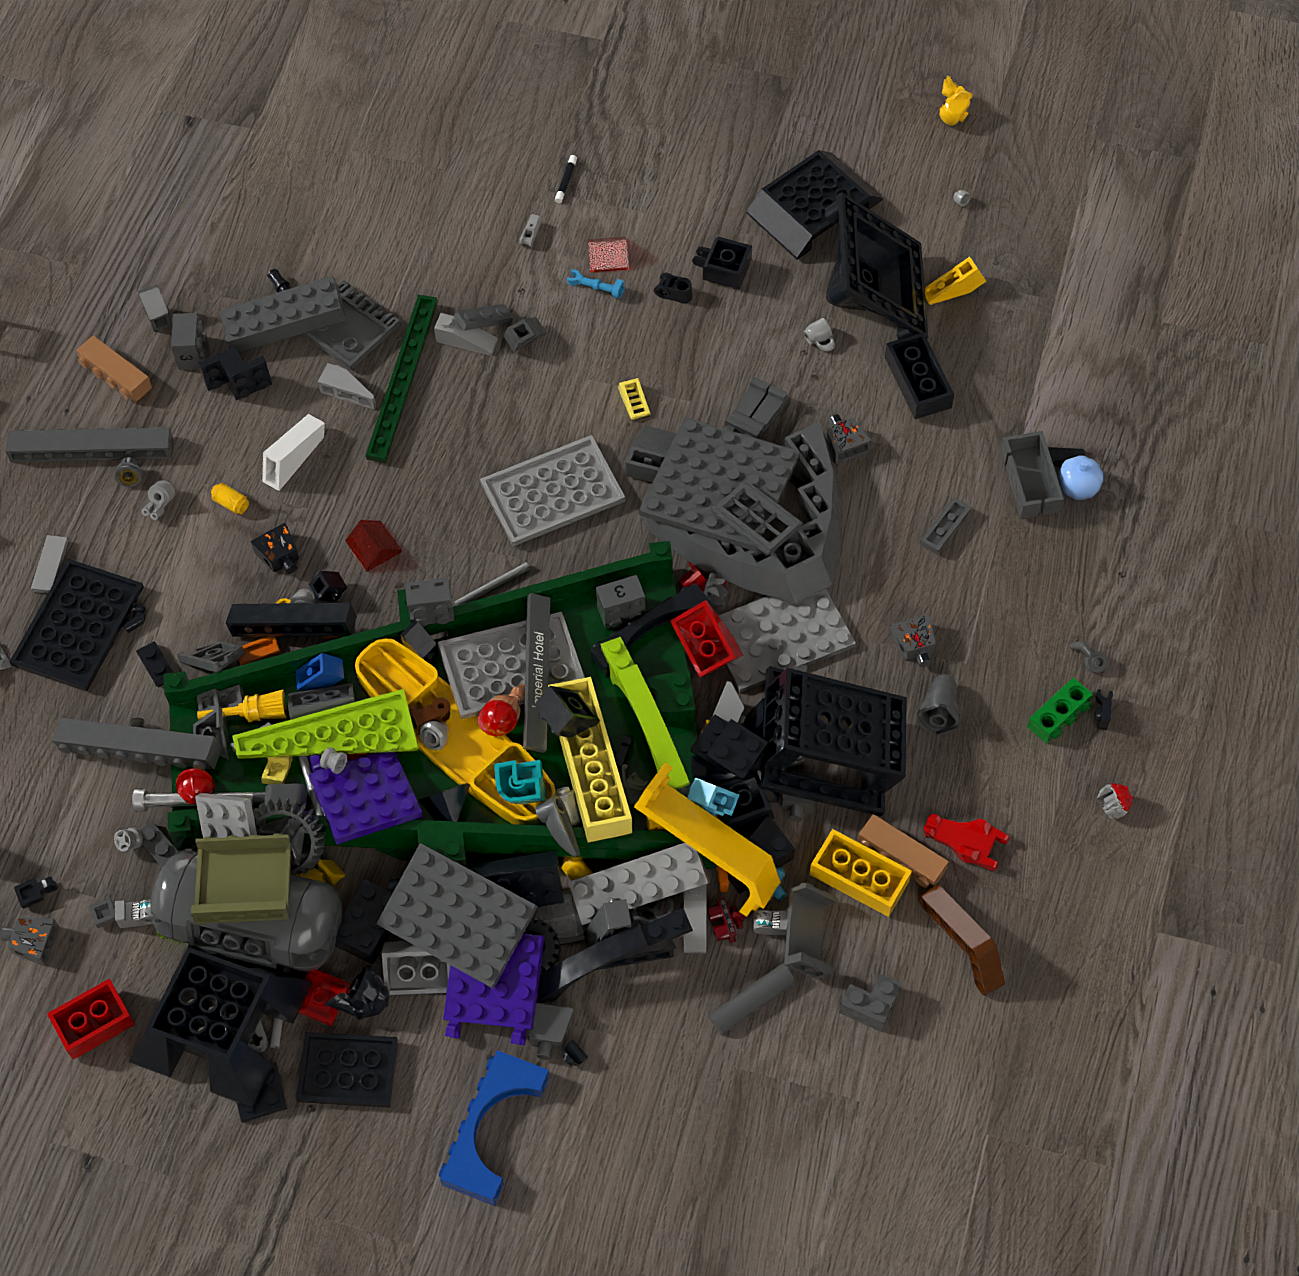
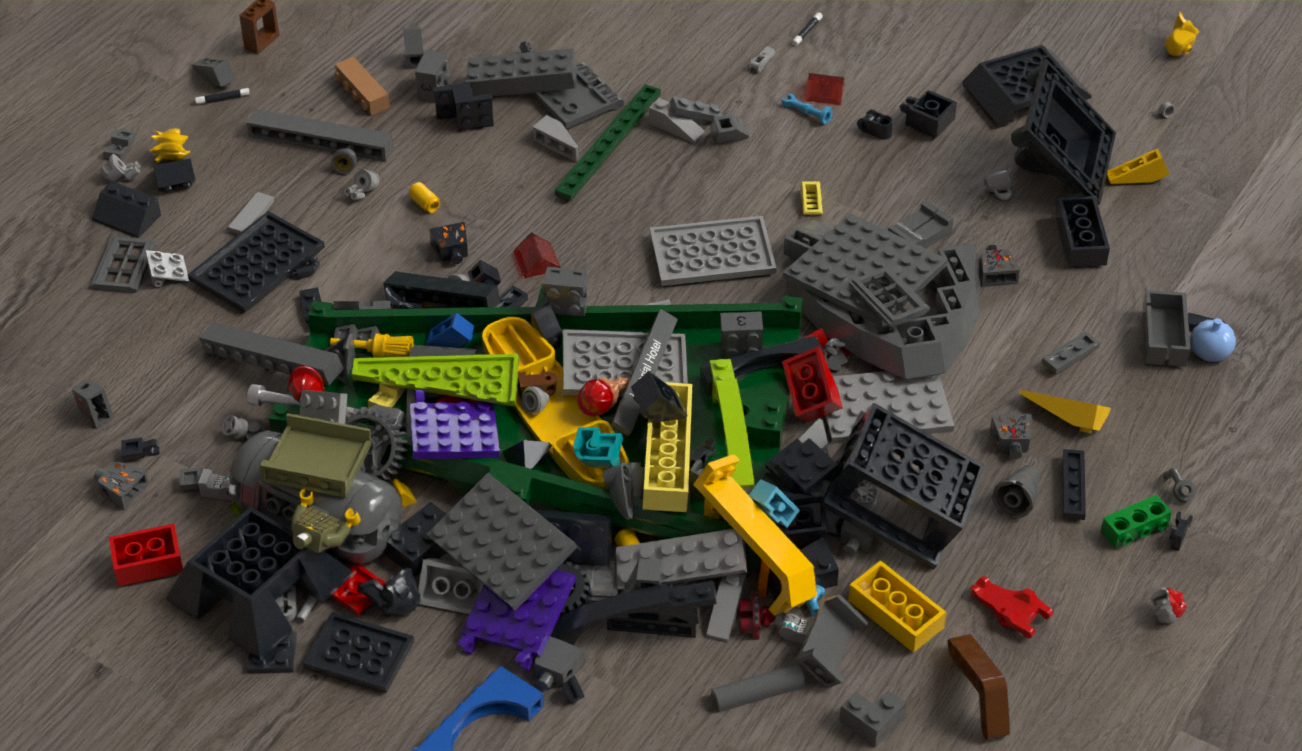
camera: 15 degrees right, 15 degrees down
(251, 642) = (399, 302): none -> black hat
(270, 960) = (317, 529): none -> olive torso
(291, 450) = (489, 173): white slope -> none
(333, 760) = (435, 394): light grey wheel -> none
(364, 606) = (513, 298): none -> black plate
(892, 843) = (961, 614): medium nougat brick -> none
(974, 598) = (1077, 413): none -> yellow wedge
(989, 682) = (1073, 484): none -> black plate

